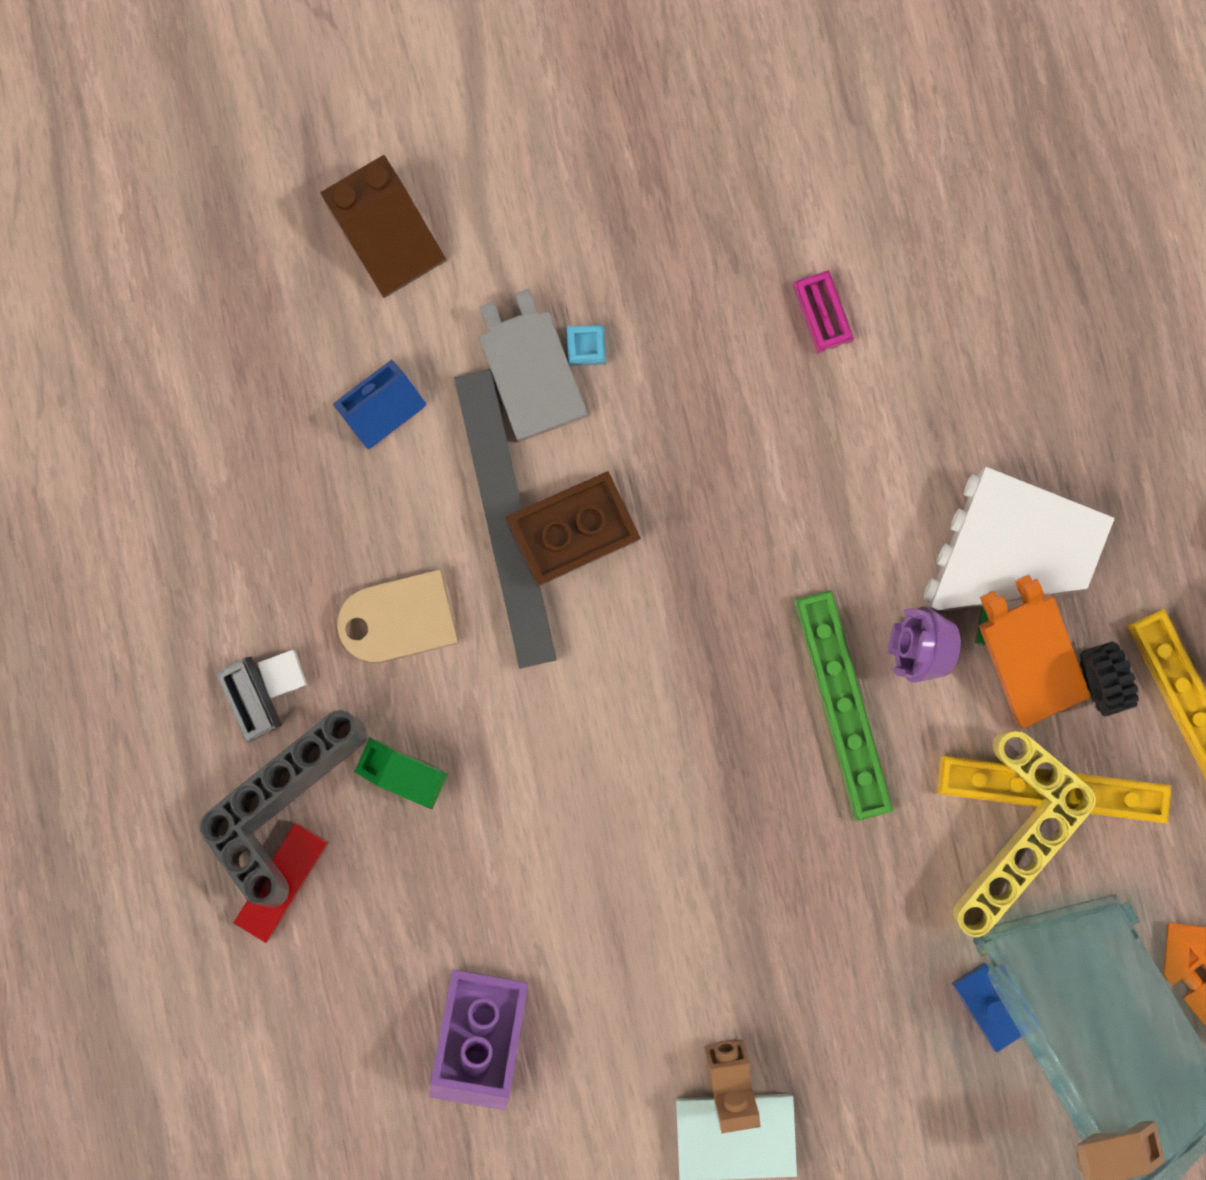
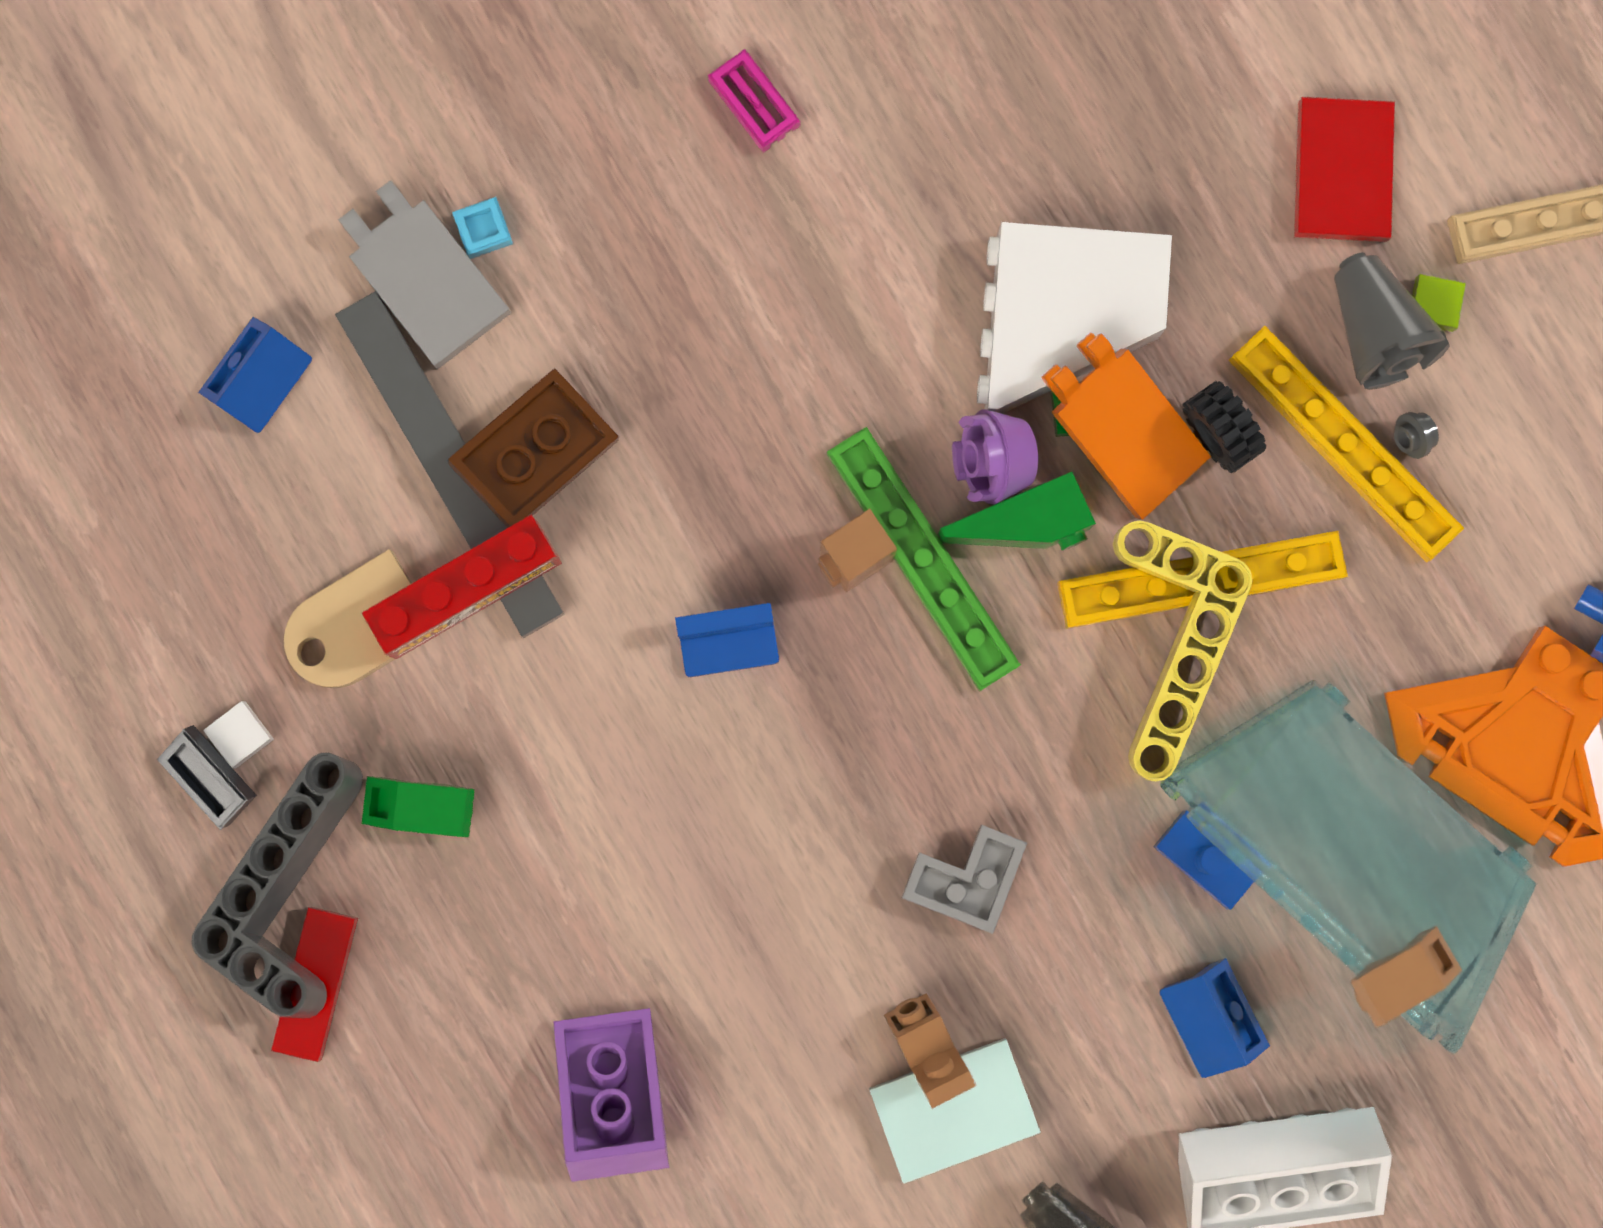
camera: 20 degrees left, 0 degrees up
(383, 226) = (192, 159): reddish brown slope -> none
(486, 618) = (461, 588): none -> red brick
(675, 721) = (727, 640): none -> blue panel
(795, 686) = (855, 552): none -> medium nougat brick
(805, 974) = (972, 893): none -> light grey plate
(940, 702) = (1033, 519): none -> green slope
(958, 1133) = (1215, 1020): none -> blue panel

